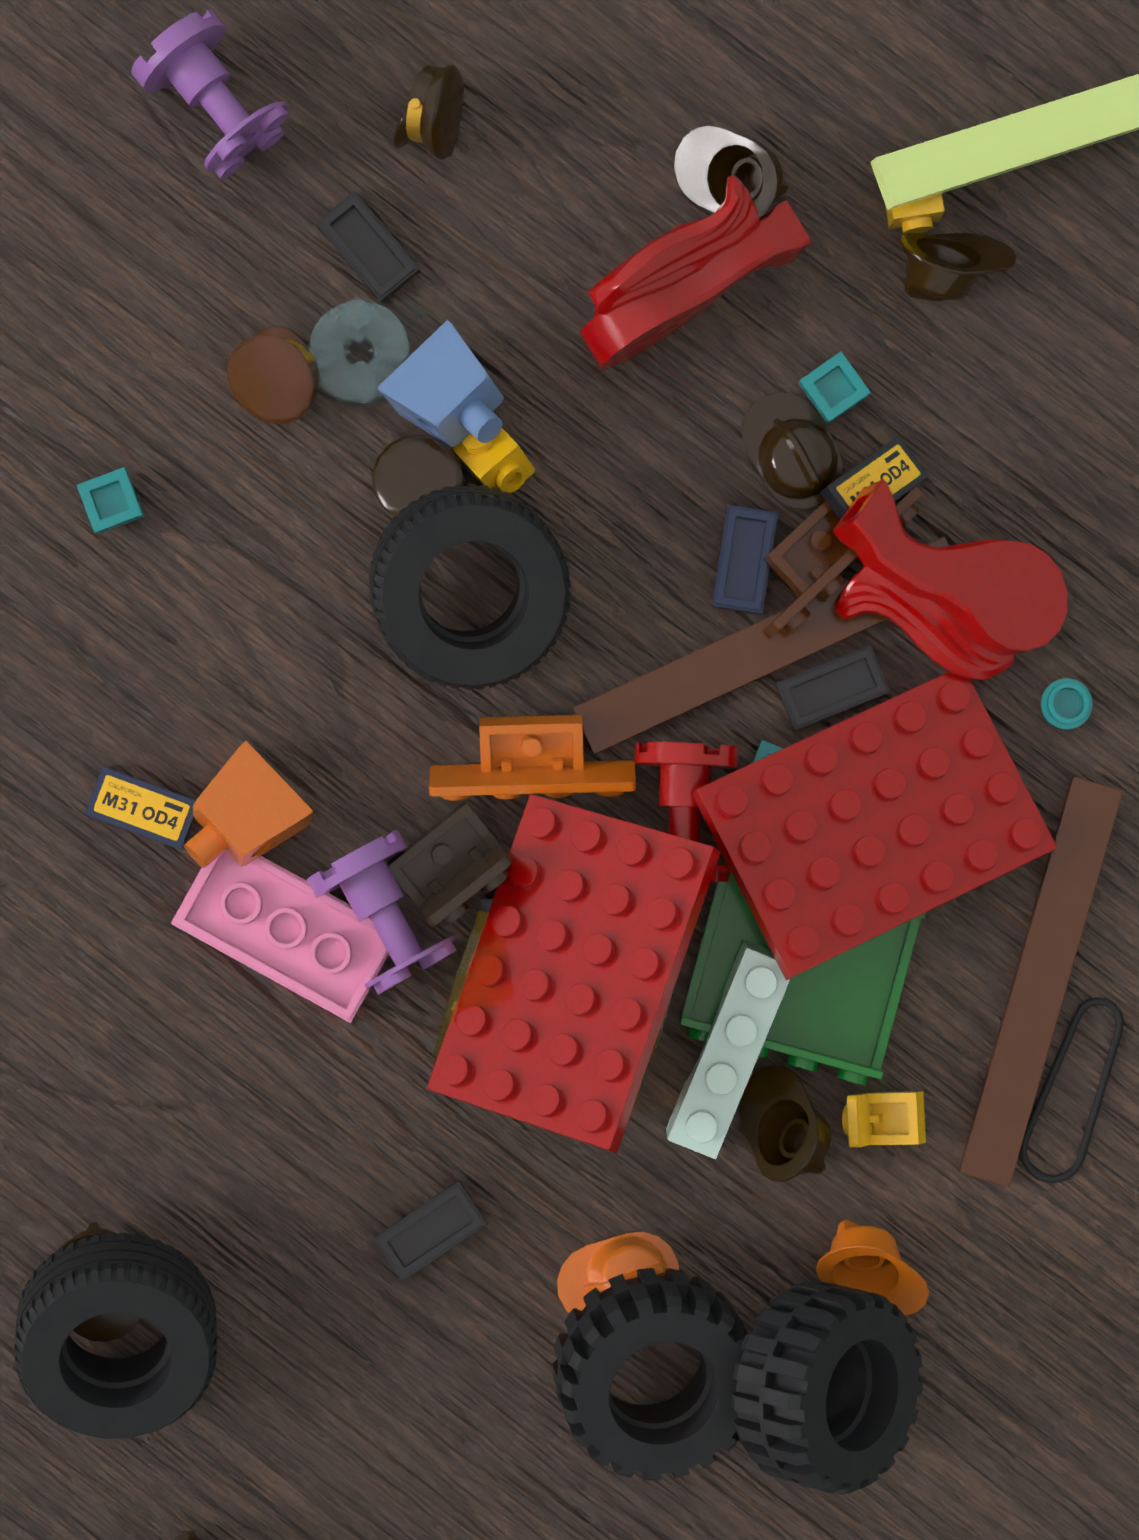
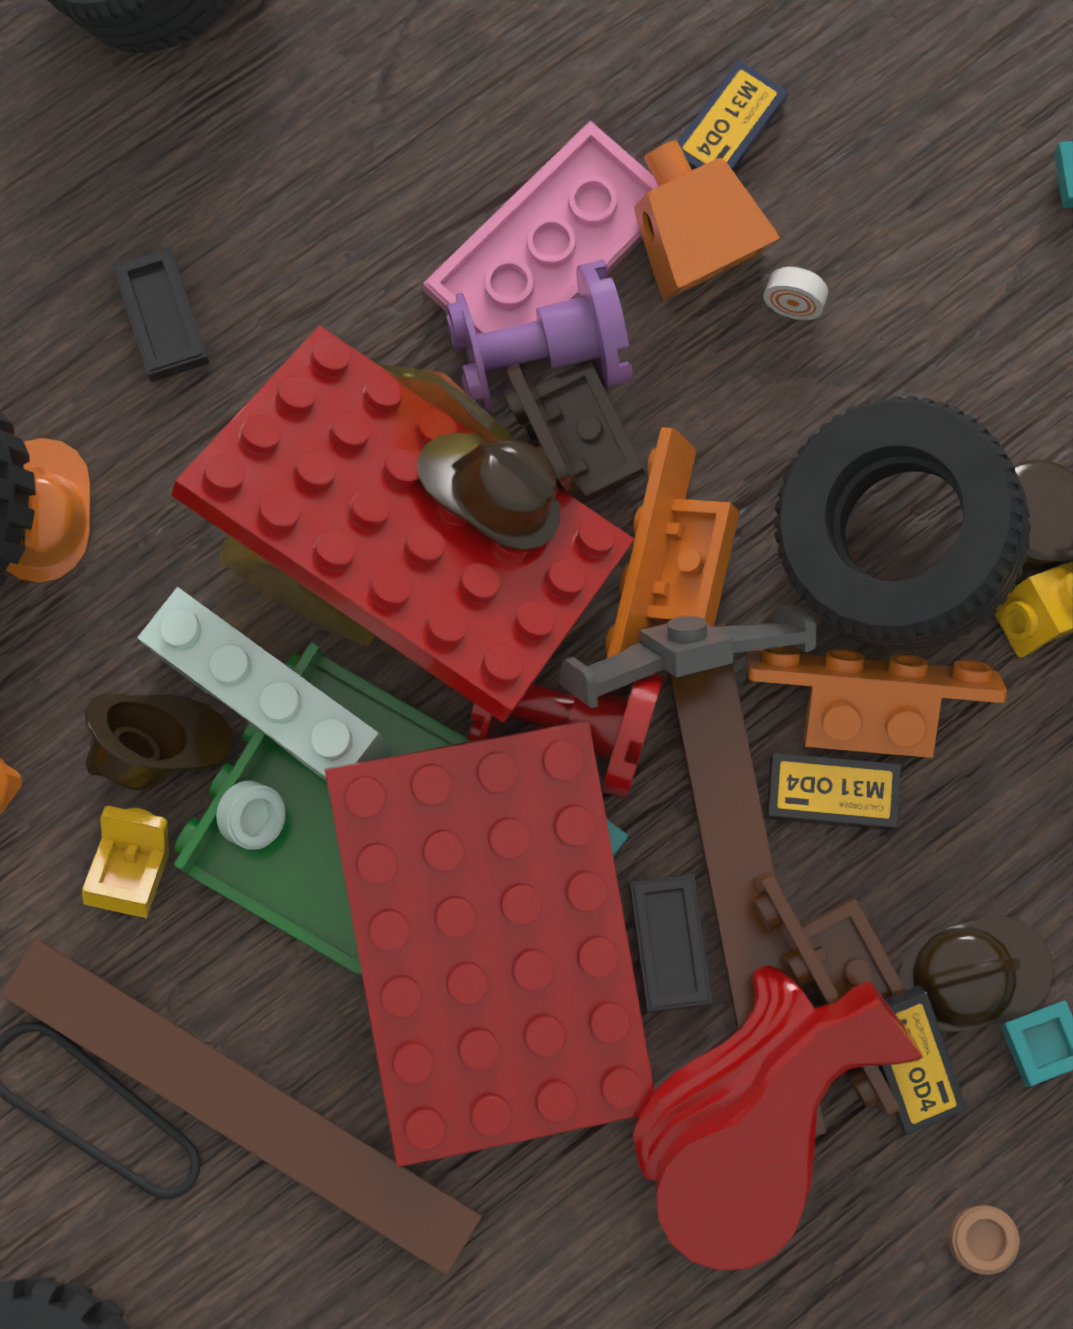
camera: 105 degrees right, 10 degrees down
(281, 716) = (796, 293): none -> white tile
(532, 913) = (495, 486): none -> dark brown piece
(604, 576) = (874, 702): none -> orange bracket
(614, 731) = (685, 648): none -> dark grey plate
(682, 591) = (833, 791): none -> tile
(741, 562) = (840, 868): dark blue tile -> none
(826, 1032) = (251, 815): none -> light aqua tile
(989, 402) = (983, 1239): none -> medium nougat tile
(1066, 703) = (576, 1233): teal plate -> none

